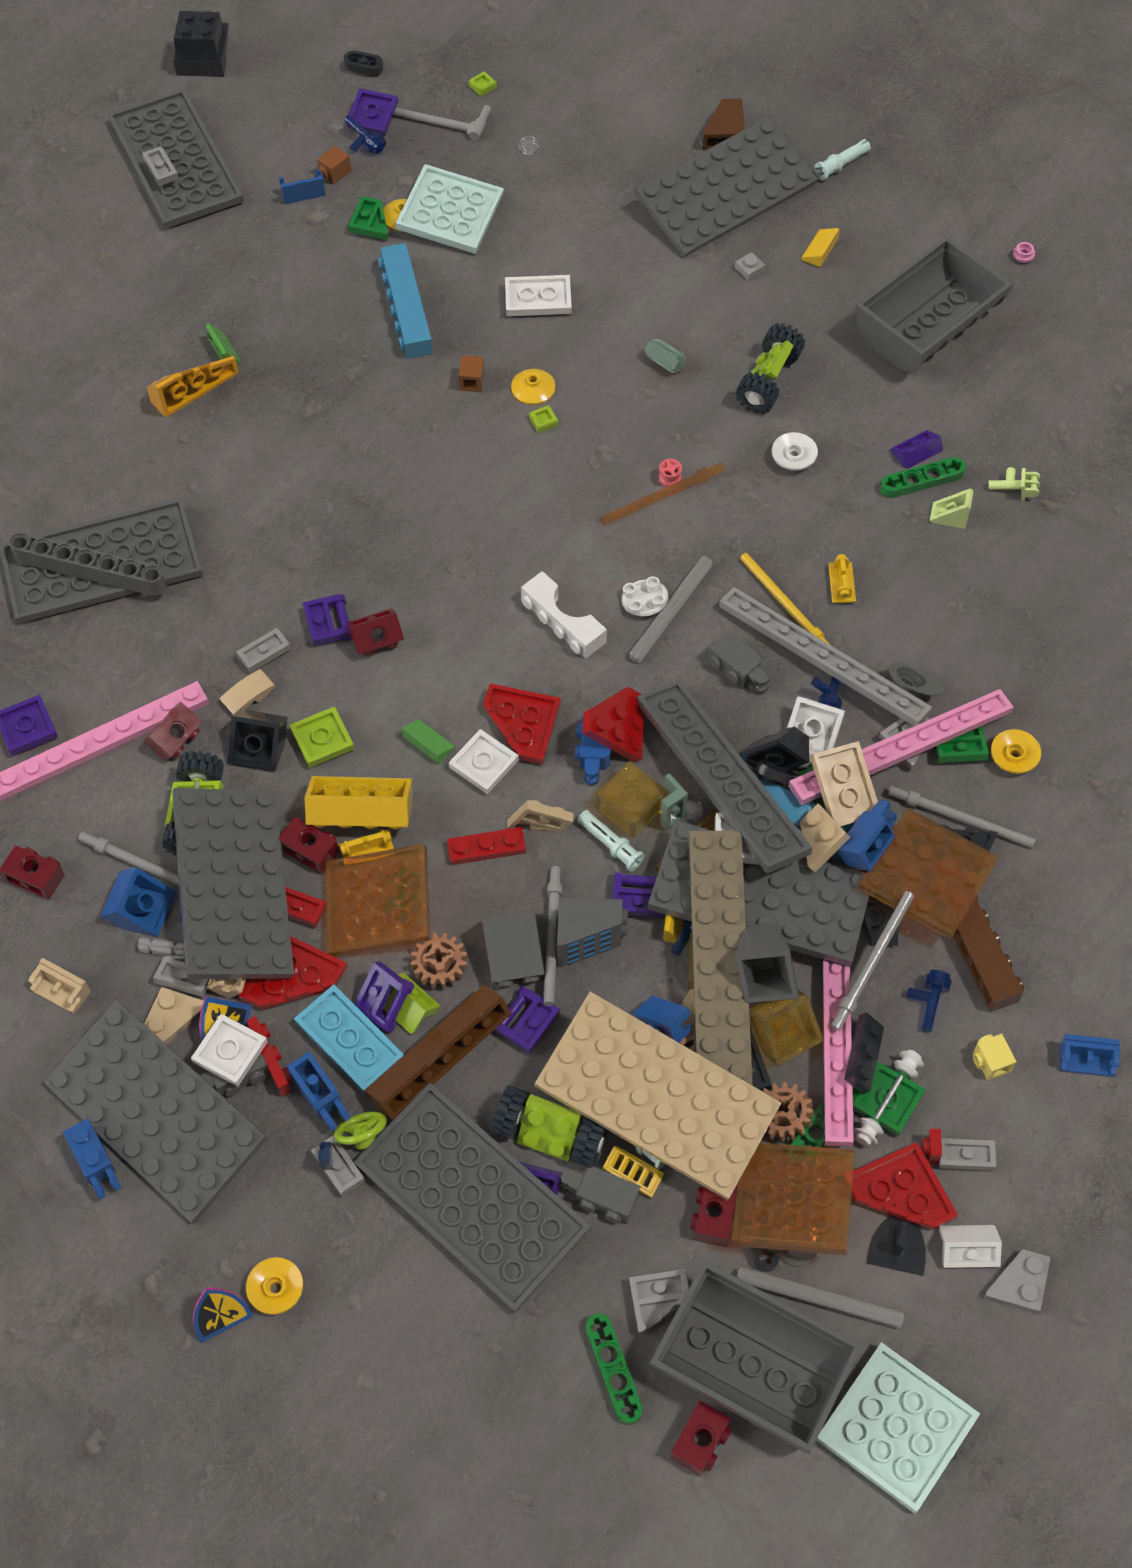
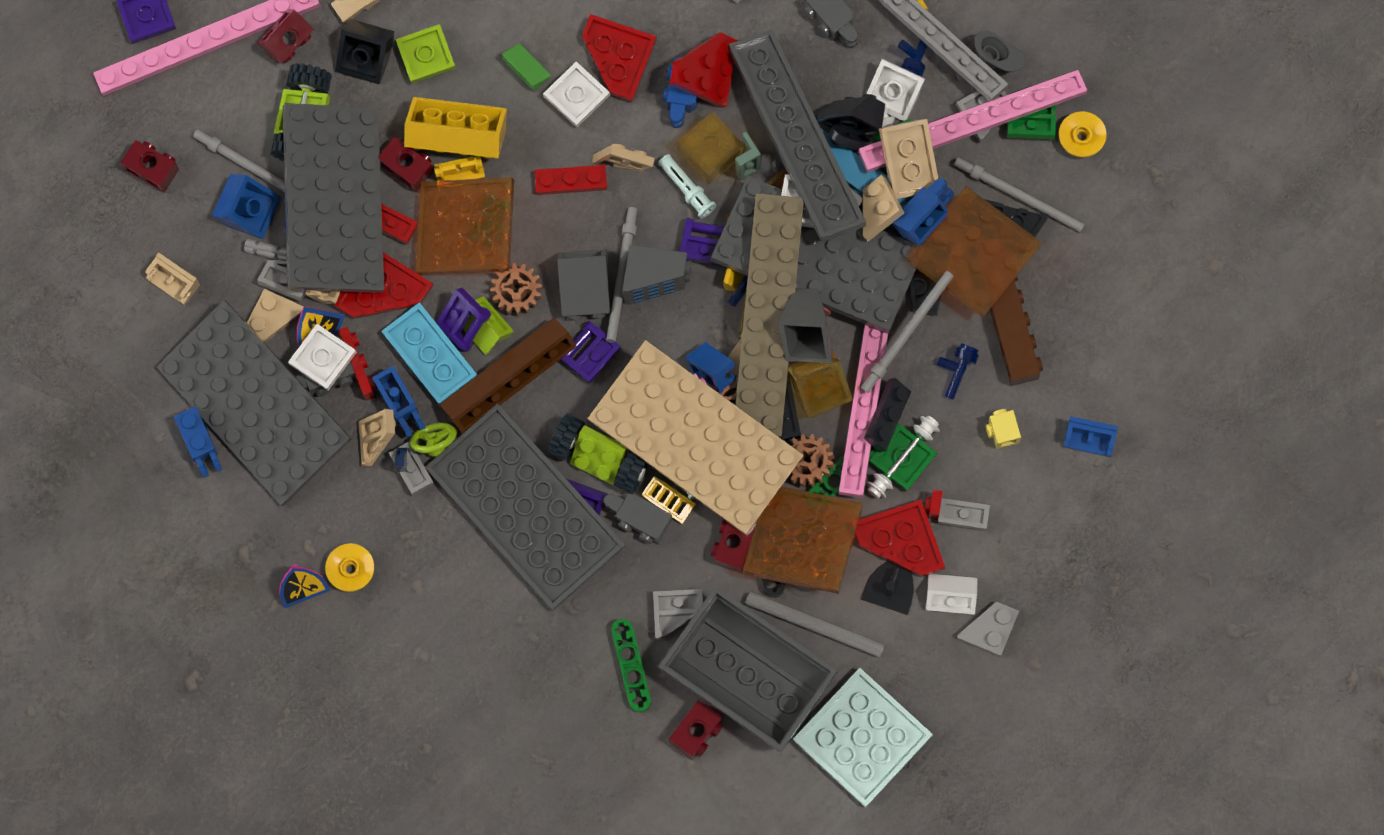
camera: 10 degrees right, 15 degrees up
(294, 1131) = (375, 434): none -> tan wing

